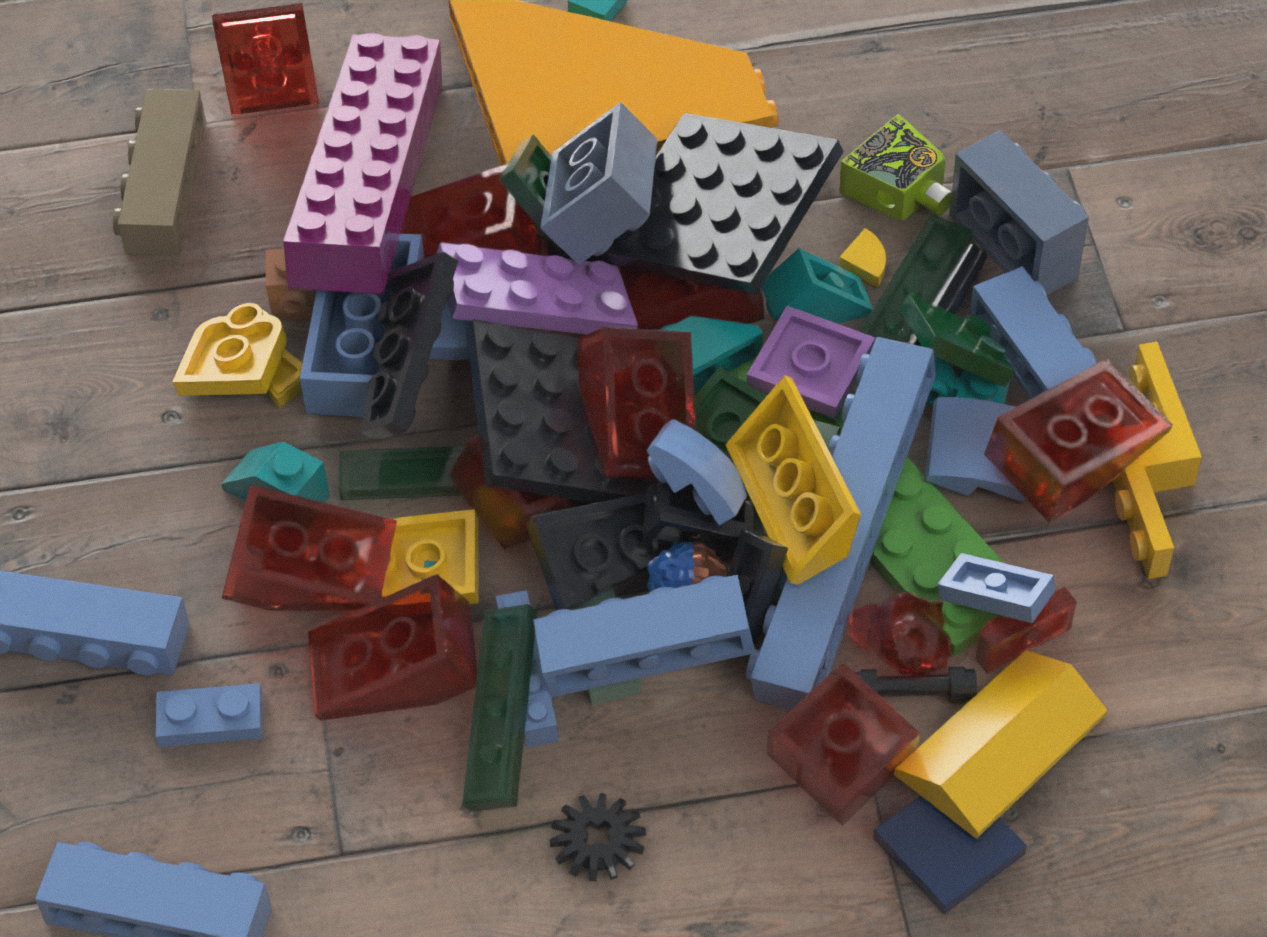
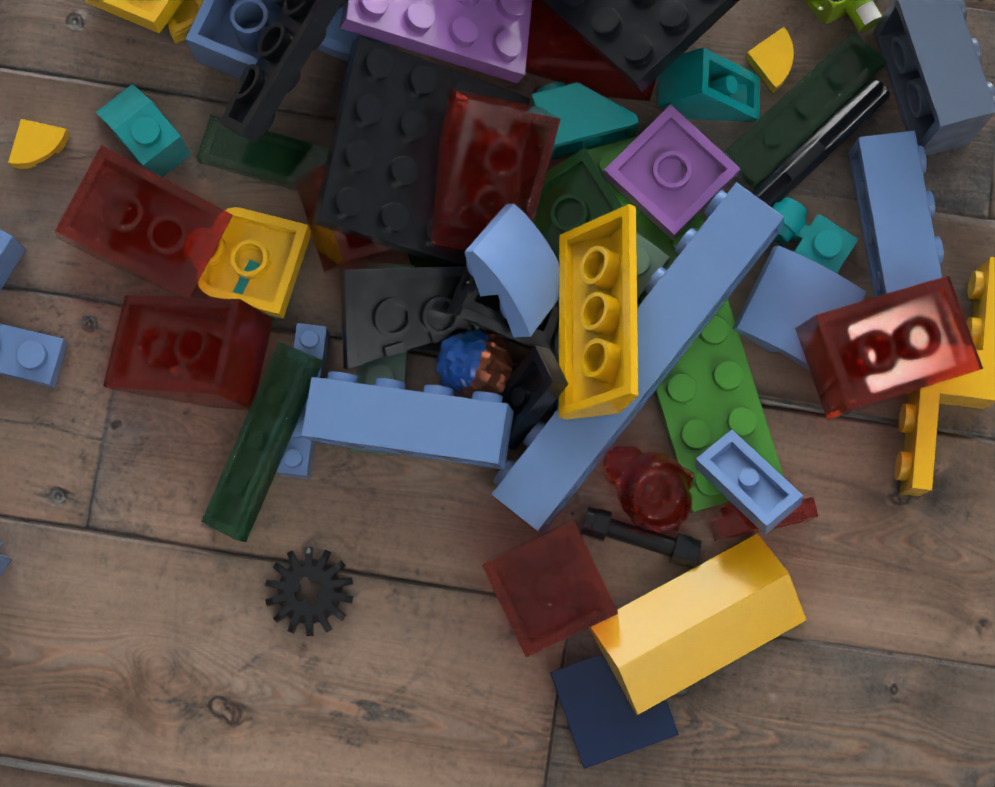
camera: 15 degrees right, 25 degrees up
(171, 525) = (36, 143): none -> yellow tile
(958, 340) = (817, 195): dark green plate -> none

